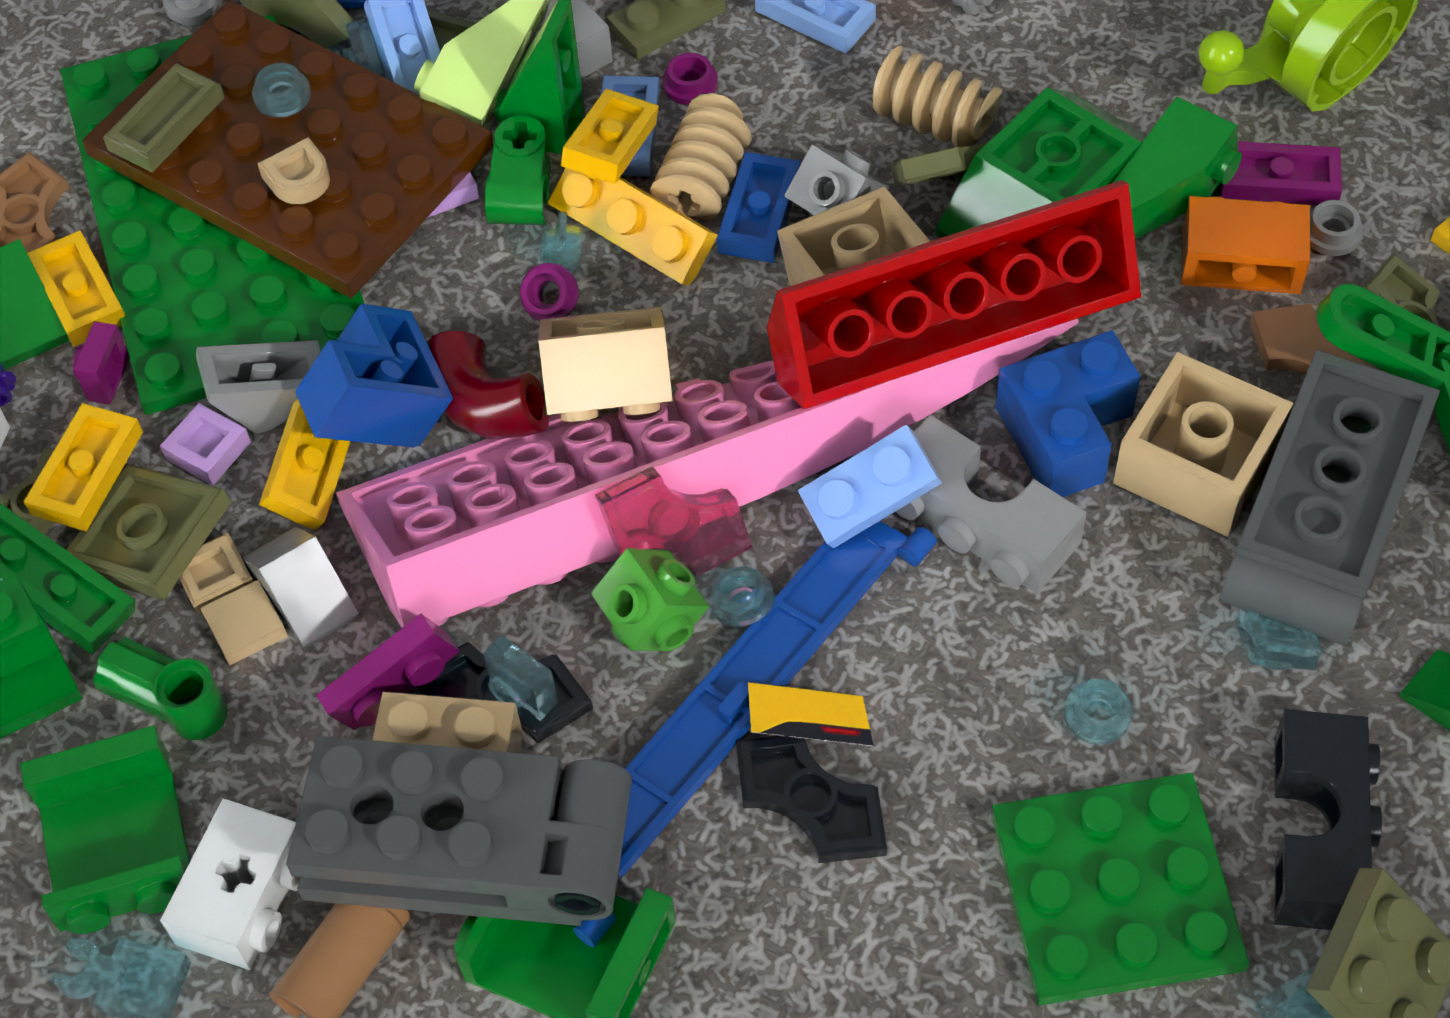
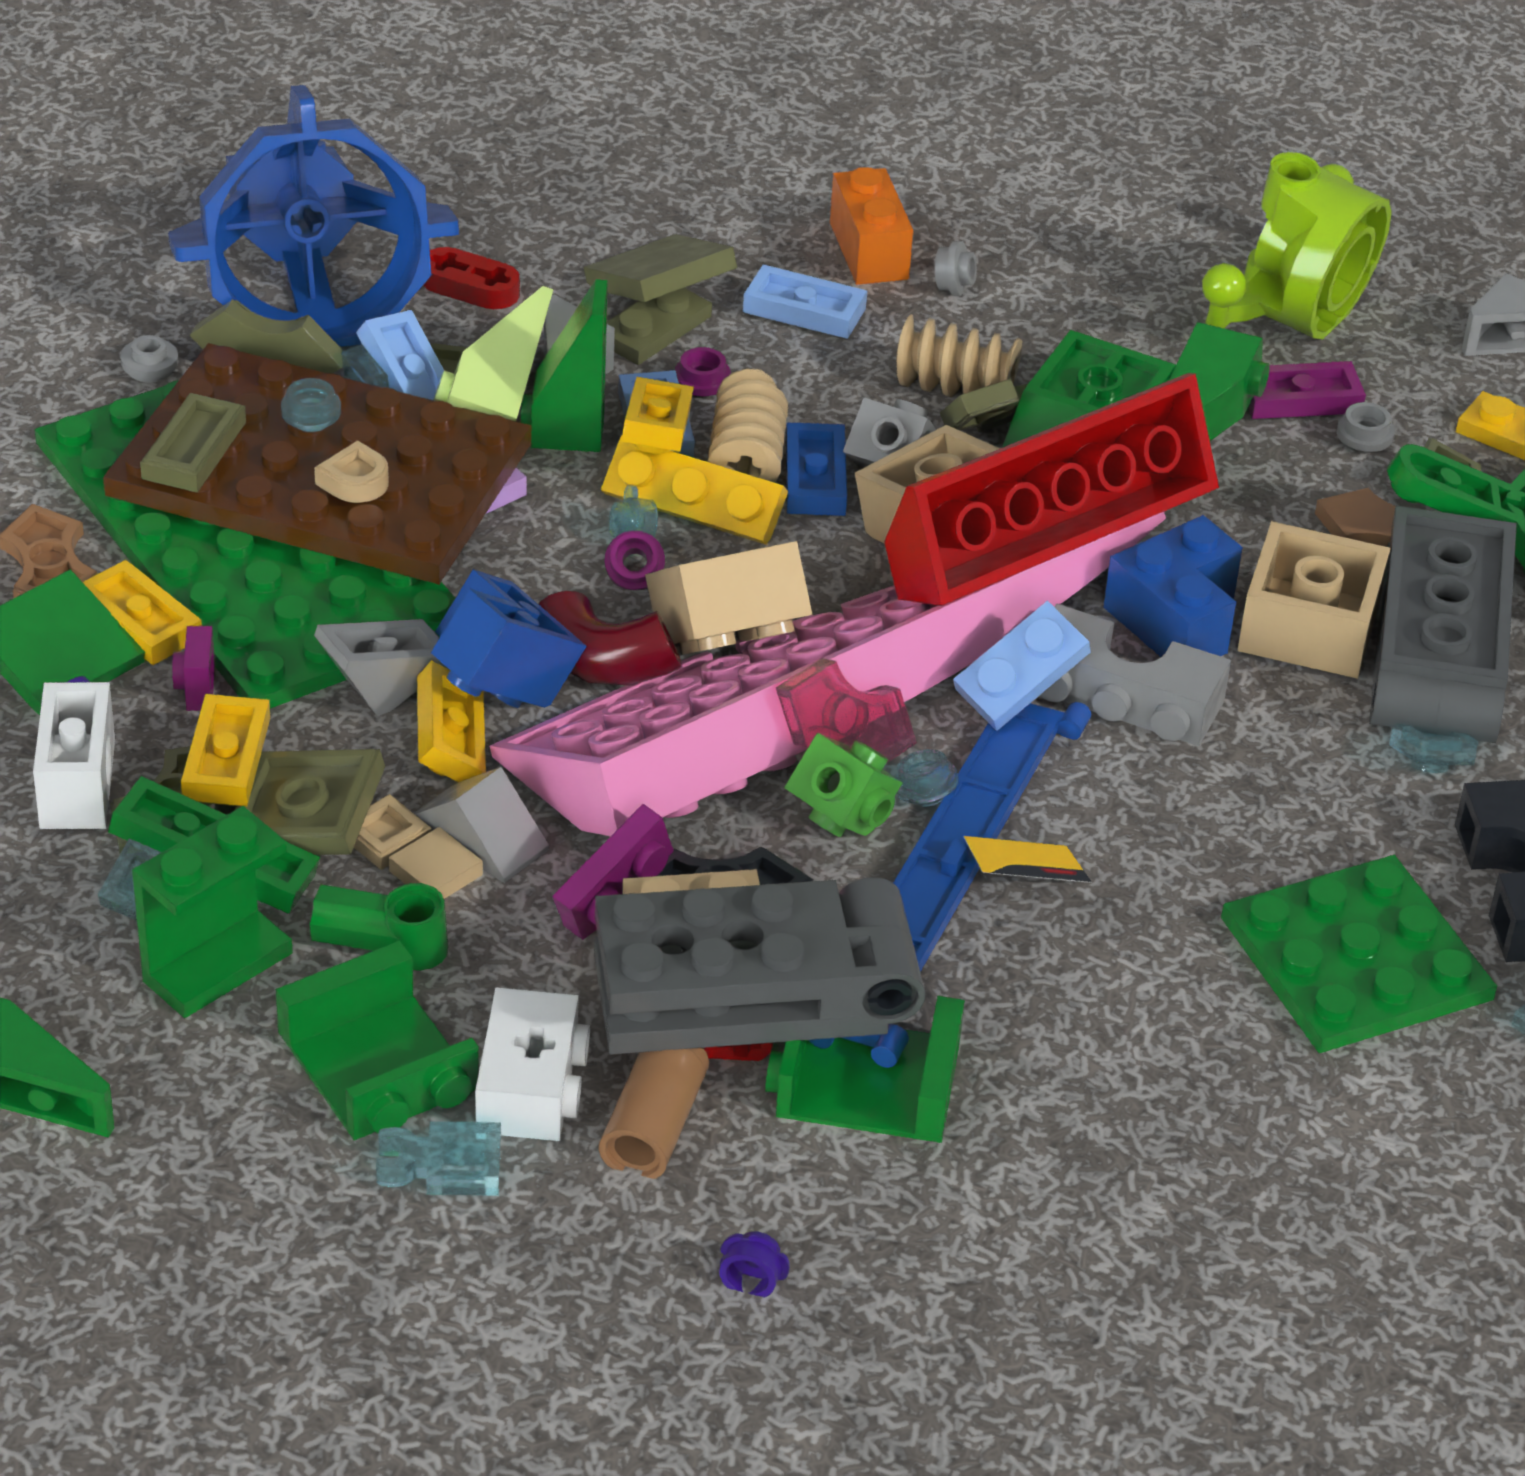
camera: 20 degrees left, 15 degrees down
(205, 444) = (334, 722): lavender plate -> none
(518, 173) = (567, 464): green piece -> none
(519, 678) = (747, 847): clear light blue plate -> none
(835, 814) = (1077, 935): black tile -> none
(1102, 694) = (1291, 821): clear light blue plate -> none
(1245, 245) = (1292, 446): orange brick -> none

